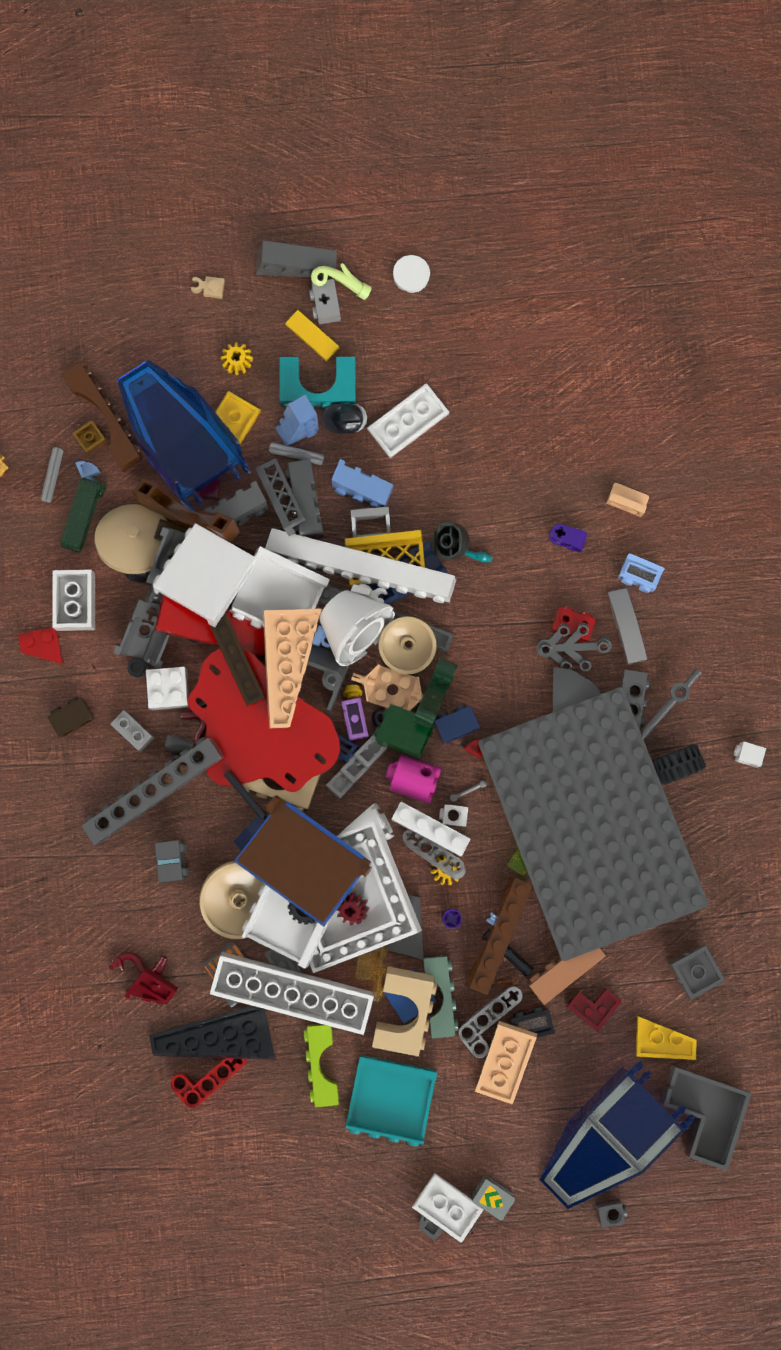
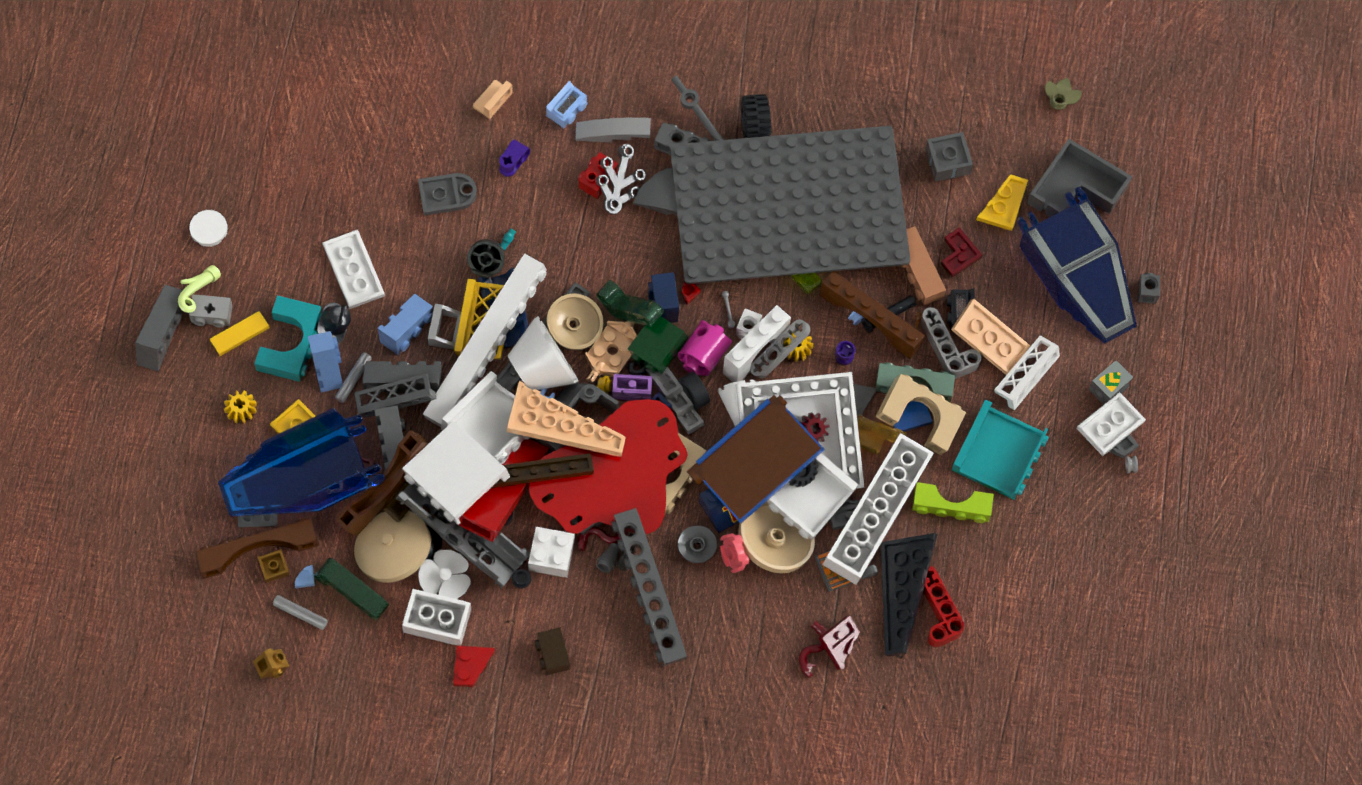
camera: 75 degrees left, 15 degrees down
(117, 600) = (441, 571): none -> white piece
(132, 731) = (583, 595): light grey brick -> none
(171, 861) = (722, 587): dark grey container -> none
(202, 825) = (701, 536): none -> dark grey dish
(211, 860) = (733, 552): none -> coral plate
(212, 287) = (157, 413): tan plate -> none
(245, 794) = (678, 500): black bar -> none
(366, 591) = (509, 344): white plate -> none
(367, 780) = (695, 390): none -> black tyre
(412, 1237) = (1131, 464): none -> light grey bush
(480, 1115) = (1032, 377): none -> white fence
(512, 482) = (445, 193): none -> dark grey tile
(749, 754) = (762, 60): white brick -> none

